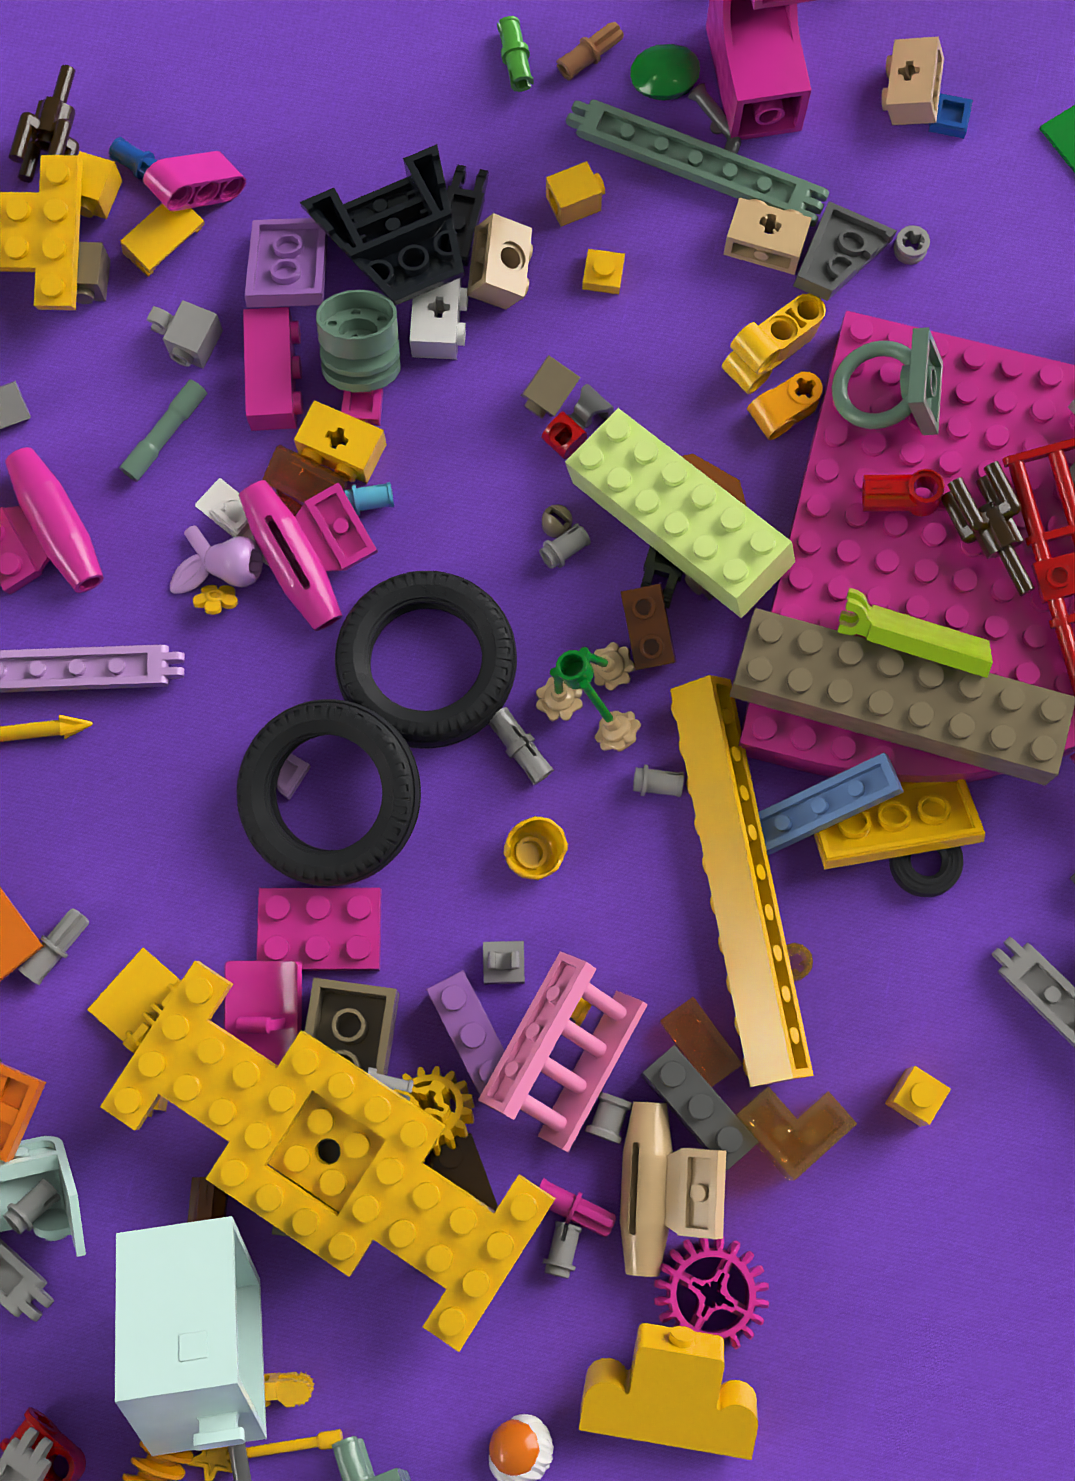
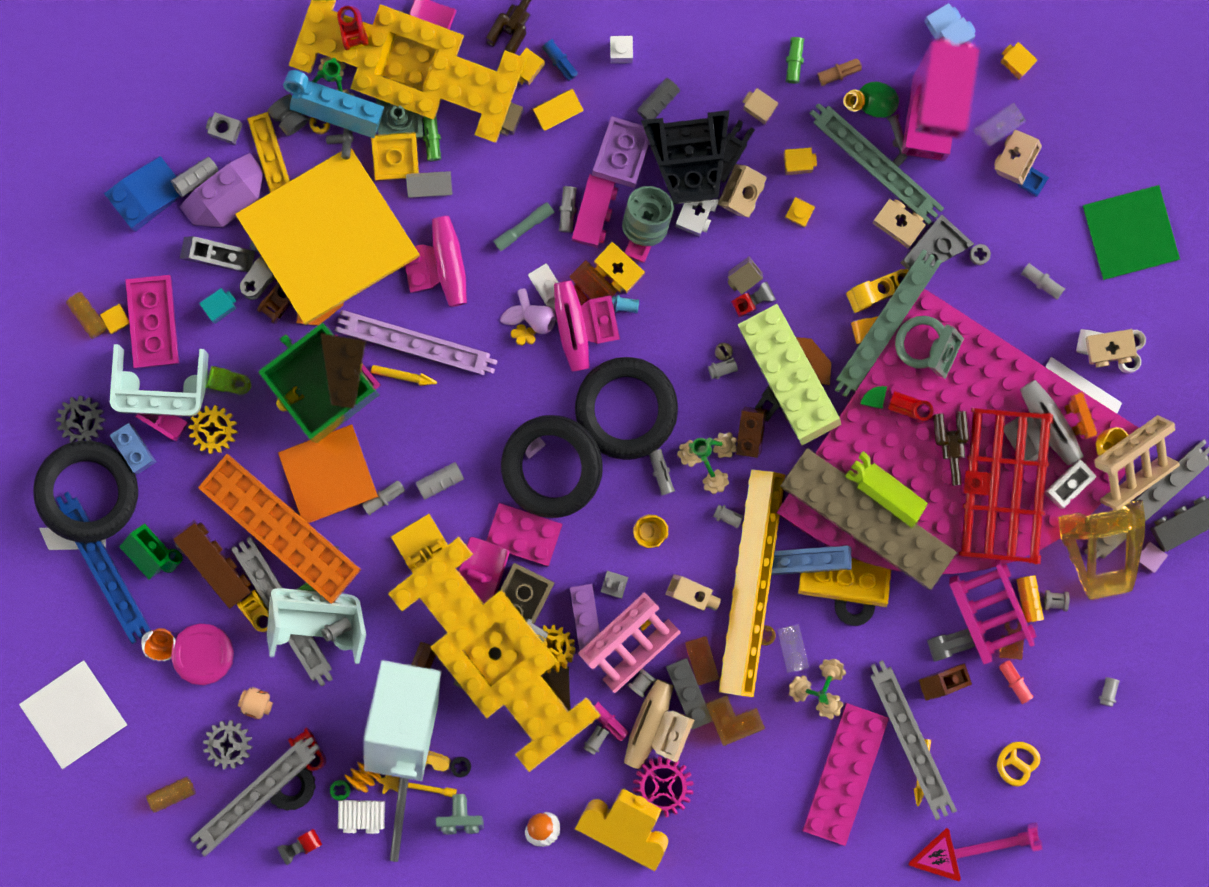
camera: 20 degrees right, 10 degrees up
(144, 884) = (439, 480): none -> light grey axle
(187, 334) = (555, 174): light grey brick -> none
(194, 180) = (586, 86): dark pink beam -> none
(227, 381) = (567, 209): none -> light grey pin
(236, 116) = (621, 49): none -> white brick
(321, 169) = (658, 99): none -> dark grey axle
(327, 1374) = (463, 773): none -> black bush
(484, 132) = (759, 105): none -> tan brick
(621, 78) = (849, 100): none -> yellow plate
(626, 930) = (685, 590): none -> tan torso
(808, 383) = (887, 323): none -> sand green hinge
(834, 499) = (874, 397): none -> green tile
(848, 968) = (793, 648): none -> clear hinge
(867, 43) = (1000, 124): none -> clear hinge
(917, 1096) = (803, 725): yellow brick -> none
(947, 1042) = (828, 704): none -> tan plant
(1022, 1161) = (845, 774): none -> dark pink plate
(1027, 251) = (1043, 281): none -> light grey pin

